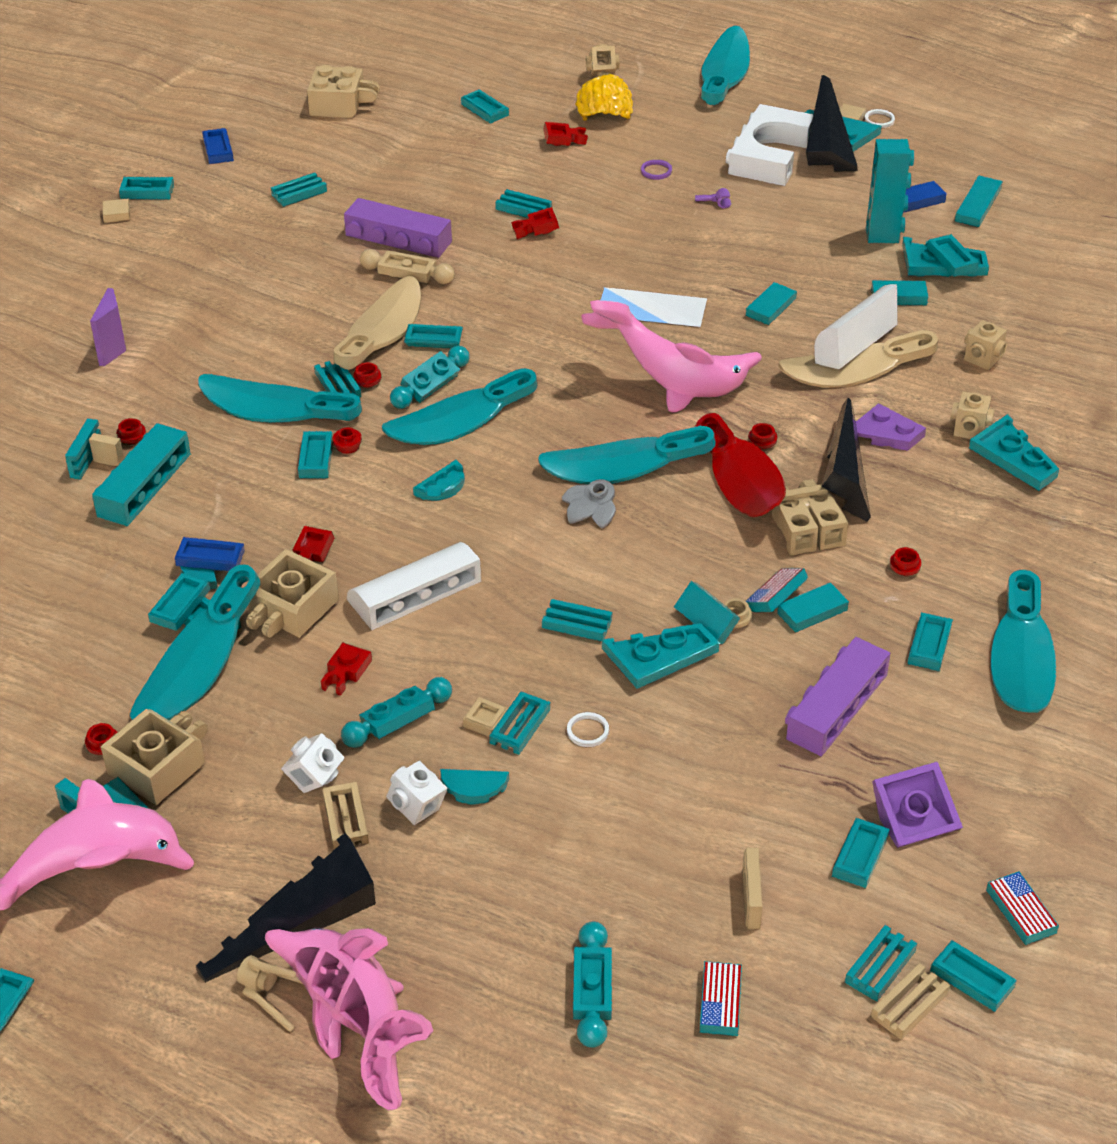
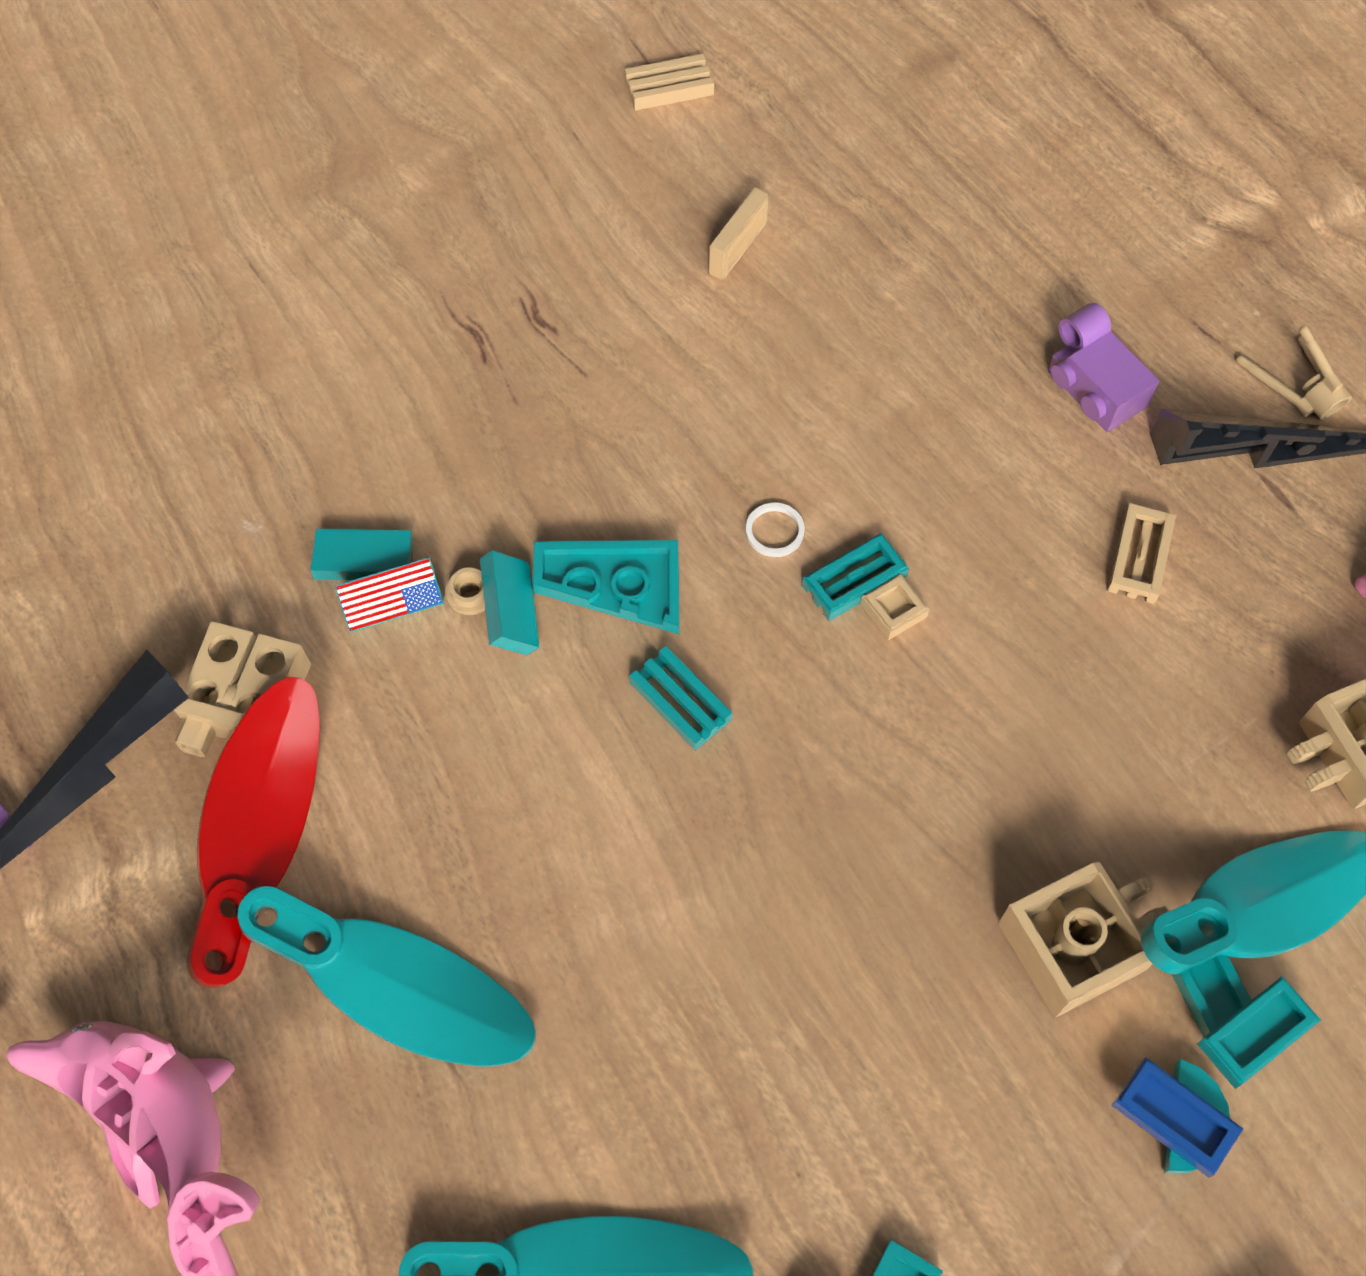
camera: 150 degrees left, 20 degrees up
(313, 543) = (999, 1048): red plate -> none
(313, 762) = (1163, 620): white brick -> none
(346, 664) = (1039, 790): red plate -> none
(355, 992) = (1229, 292): bright pink animal -> none
(396, 712) = (1010, 662): teal plate -> none
(416, 585) = (875, 883): white brick -> none
(416, 792) = (1050, 512): white brick -> none
(429, 908) = (1100, 369): none -> medium lavender hinge
(441, 484) = (708, 1099): teal tile -> none
(474, 785) = (964, 514): teal tile -> none
(586, 502) = (520, 906): light grey plate -> none
(592, 984) = (967, 225): teal plate -> none
(721, 998) = (846, 163): tile -> none
(763, 436) = (142, 893): red plate -> none
(837, 696) = (453, 400): medium lavender brick -> none
(860, 852) = (589, 232): teal tile -> none
(895, 942) = (663, 118): teal tile -> none
(905, 561) = (180, 545): red plate -> none
(916, 805) = (493, 235): medium lavender slope -> none
(930, 641) = (271, 433): teal tile -> none
(973, 975) = (590, 77): teal tile -> none
(1022, 908) = (485, 107): tile -> none
(1023, 648) = (182, 362): teal plant -> none

